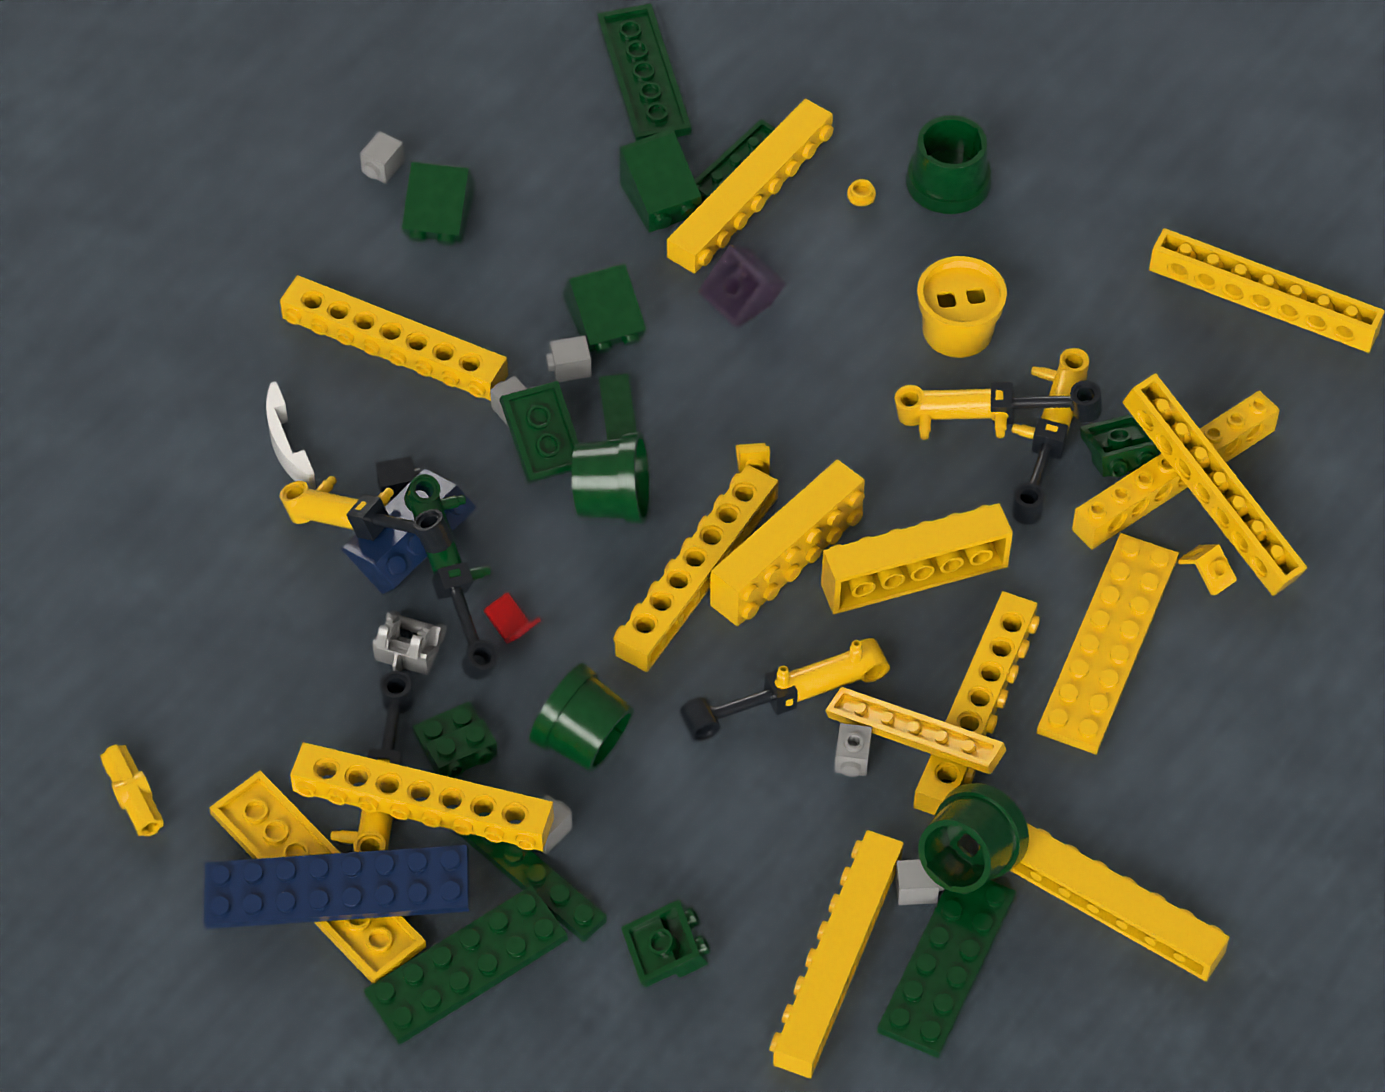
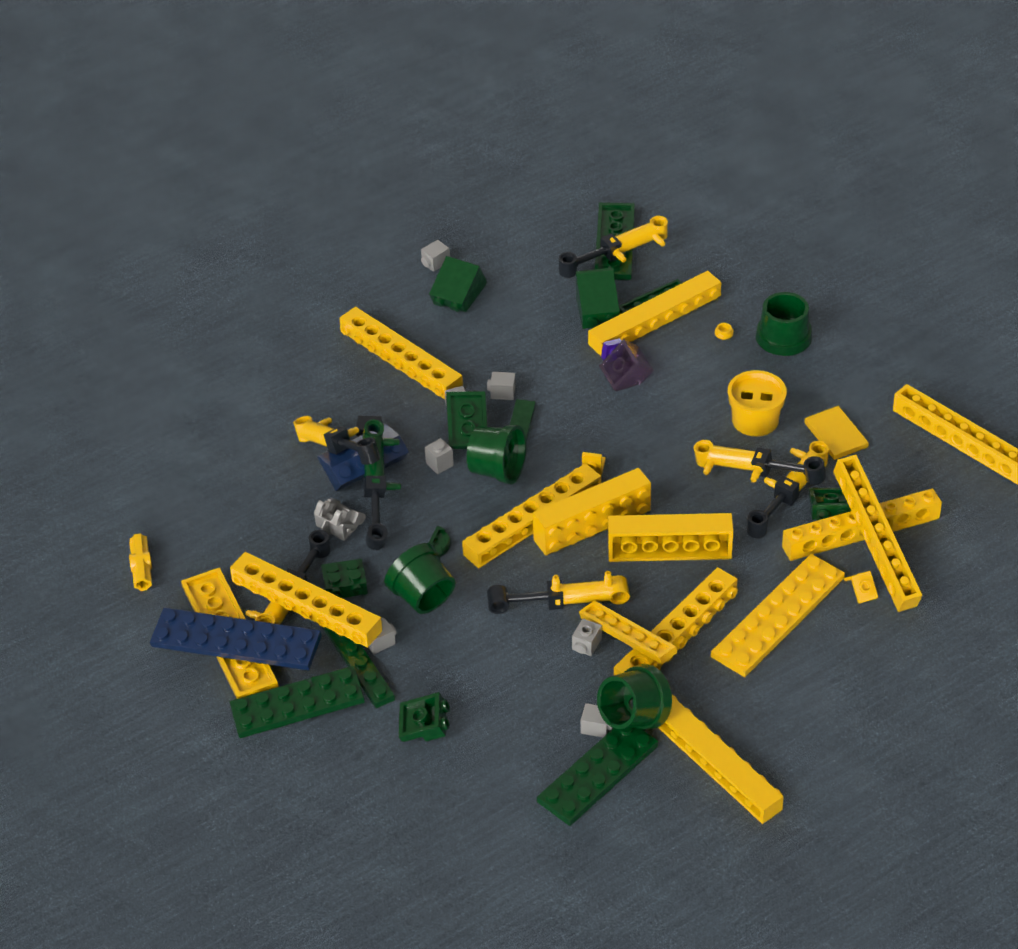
camera: 20 degrees right, 10 degrees down
(296, 463) = (311, 381): white slope -> none
(508, 618) = (404, 518): red bracket -> none
(521, 501) = (439, 456): none -> light grey brick
(573, 646) = (440, 541): none -> dark green tile
(605, 308) = (534, 361): dark green slope -> none
(652, 85) = (614, 246): none -> piece
(708, 260) = (608, 347): none -> dark purple plate
(837, 954) = (527, 750): yellow brick -> none
(1082, 323) = (837, 431): none -> yellow tile

